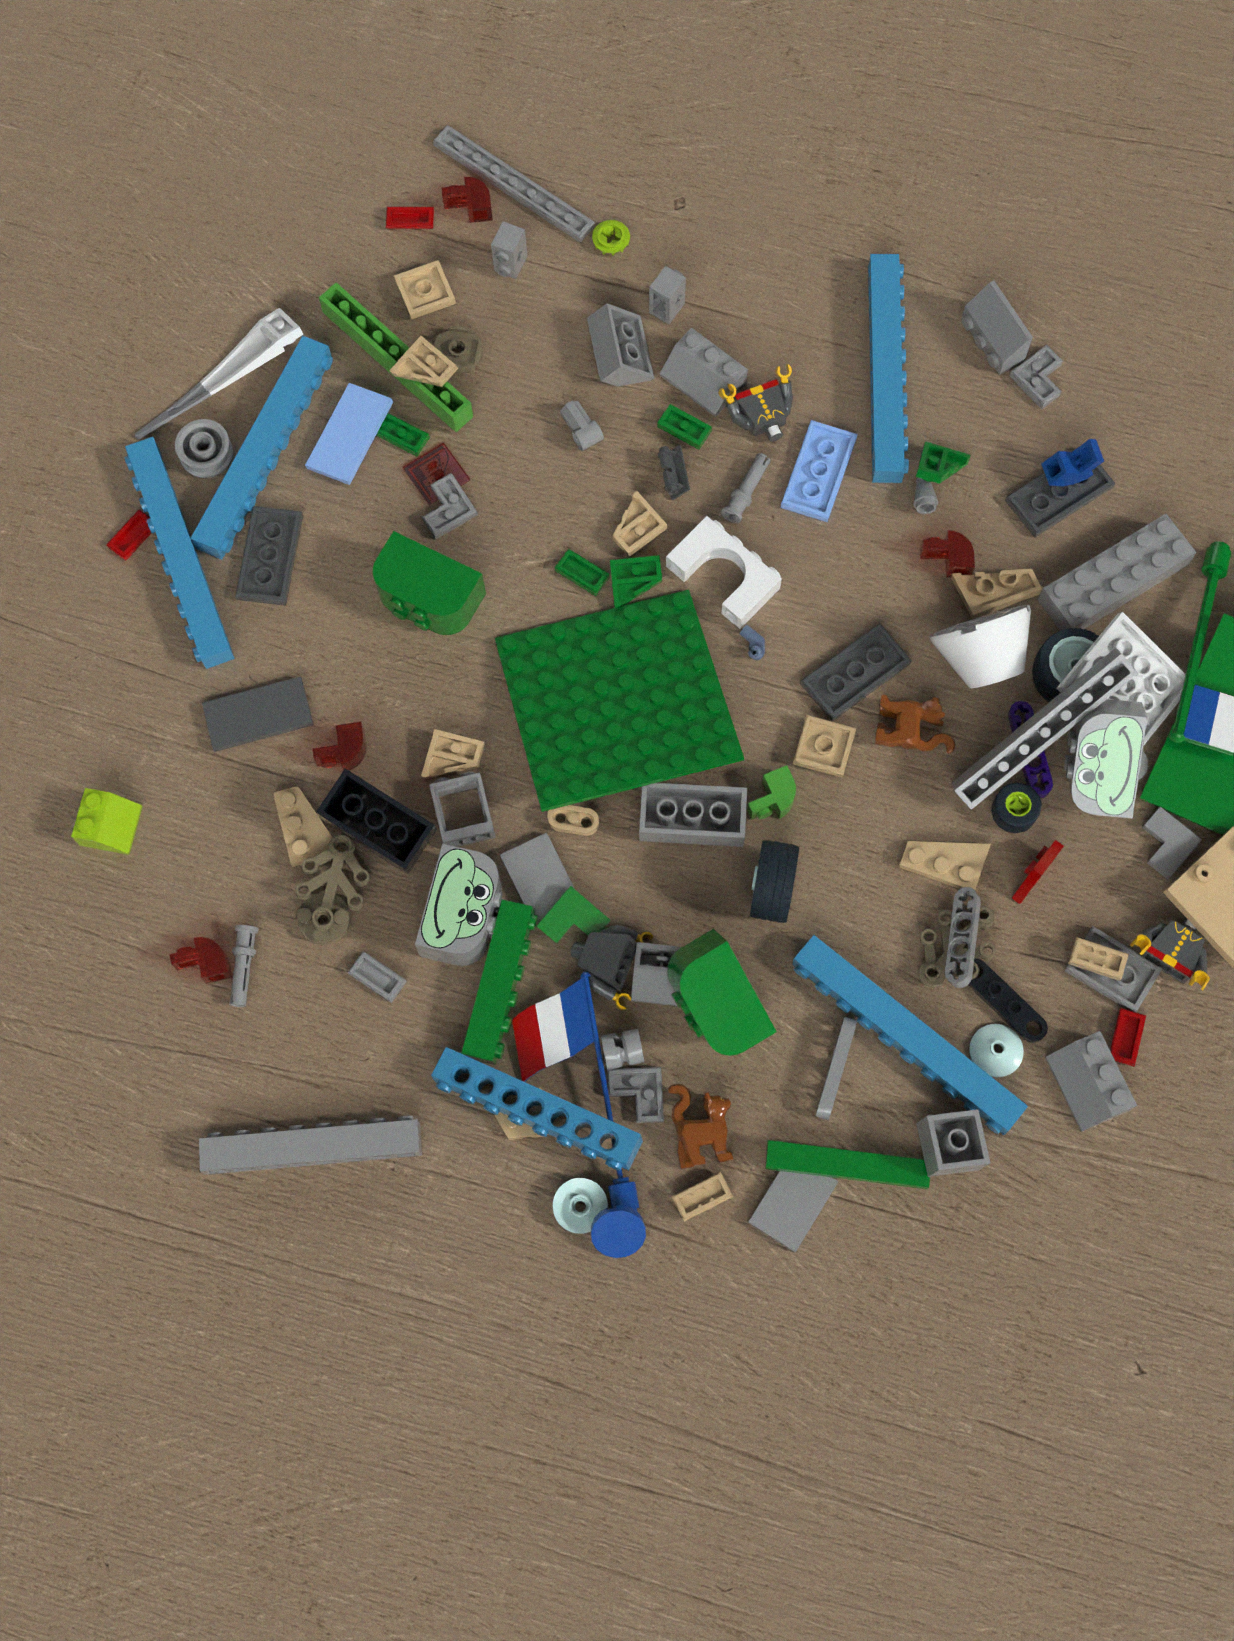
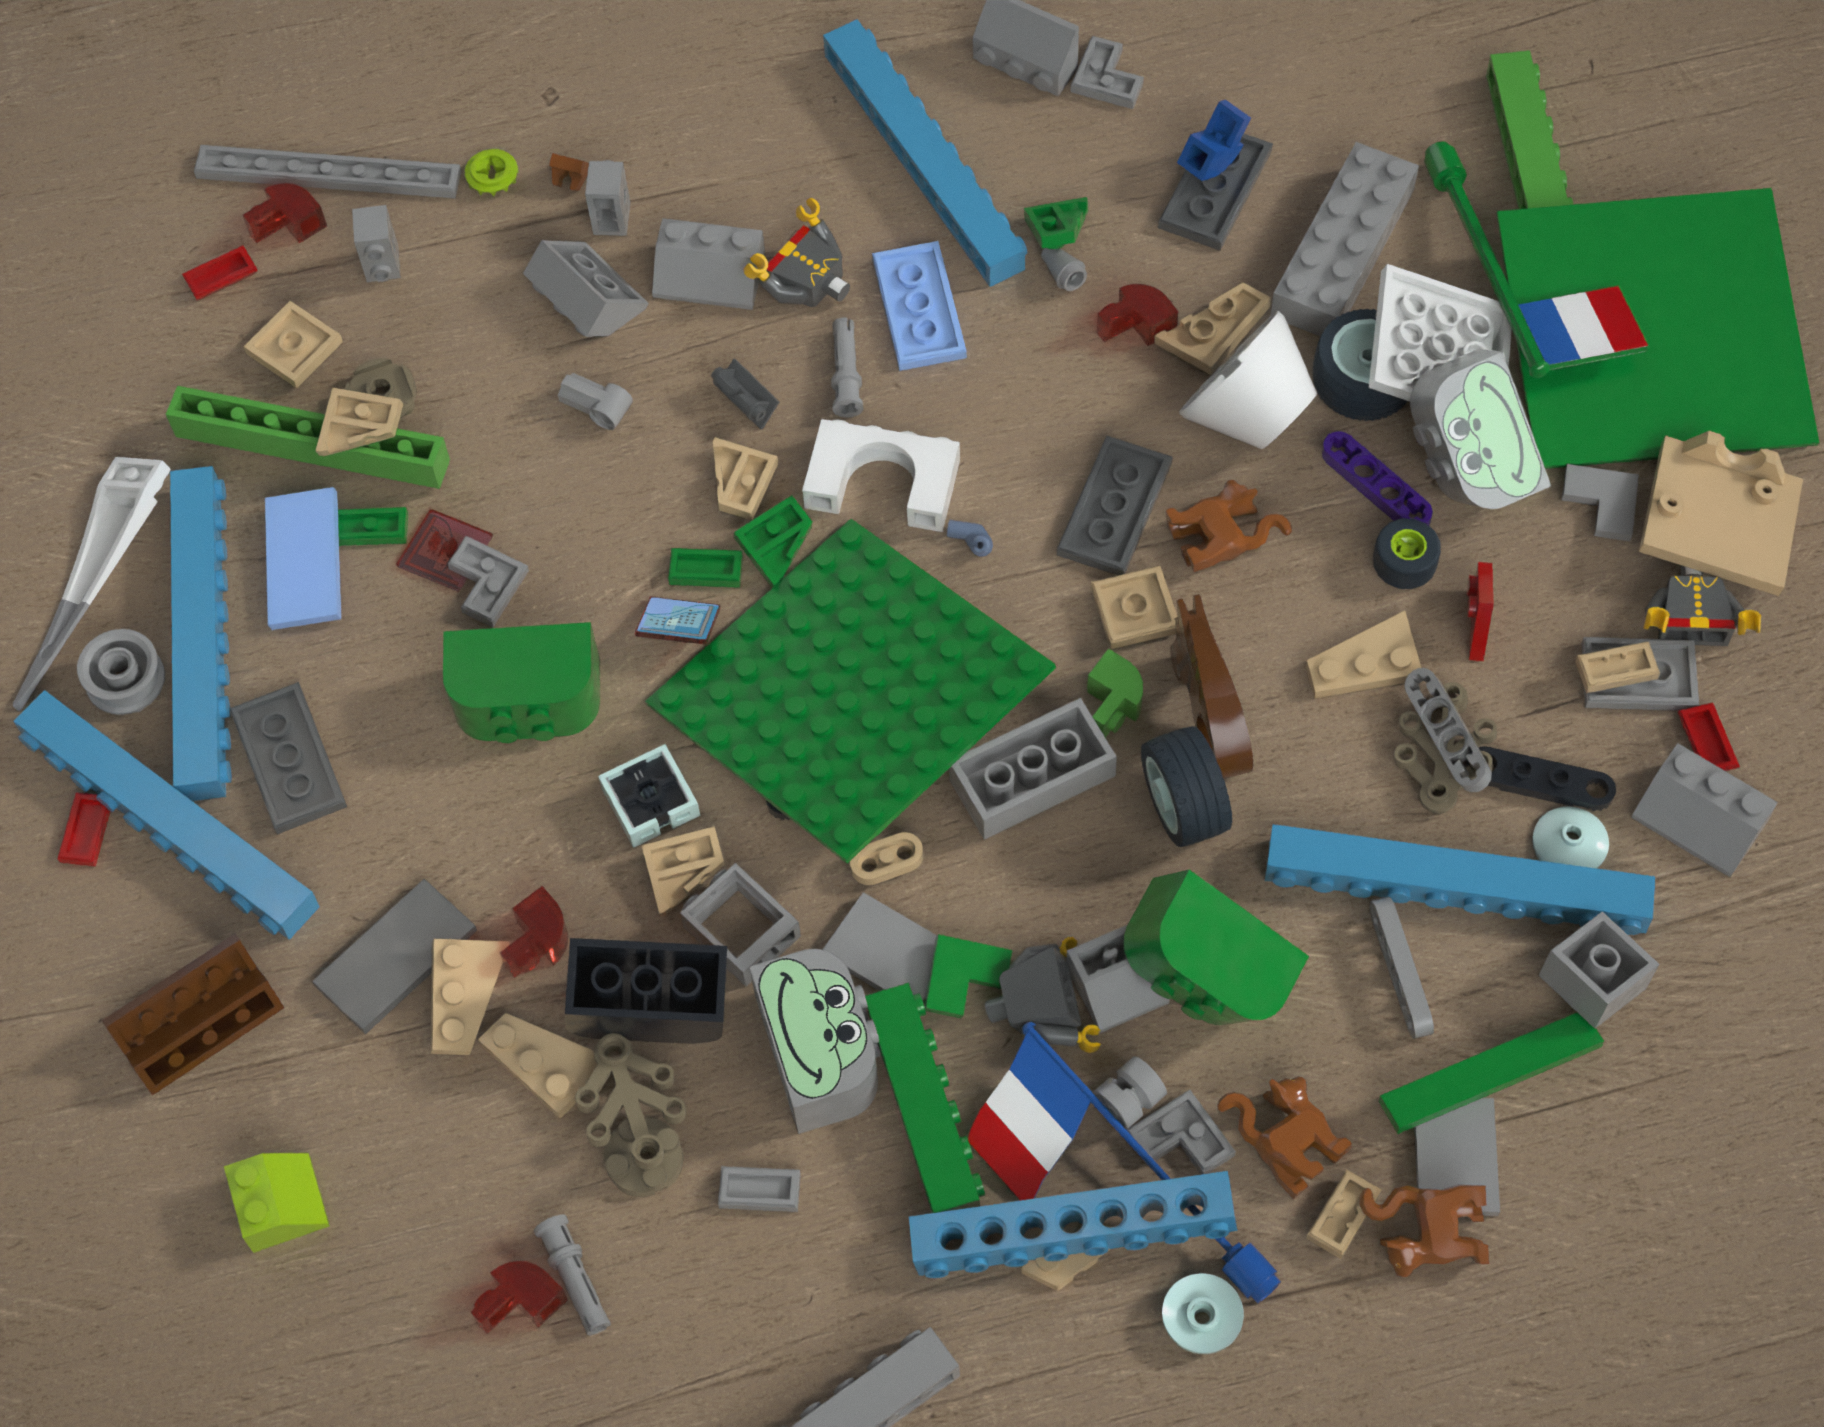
camera: 30 degrees left, 10 degrees down
(123, 685) = (193, 1014): none -> reddish brown brick
(280, 758) = (461, 990): none -> tan wing
(458, 699) = (649, 795): none -> piece
(542, 598) = (677, 620): none -> piece
(618, 1231) = (1272, 1315): blue tile -> none
(657, 258) = (565, 165): none -> dark orange tile
(684, 426) = (723, 337): green plate -> none
(753, 1233) = (1437, 1222): none -> dark orange animal
(827, 832) = (1211, 690): none -> reddish brown animal
(1044, 728) = (1386, 438): light grey brick -> none

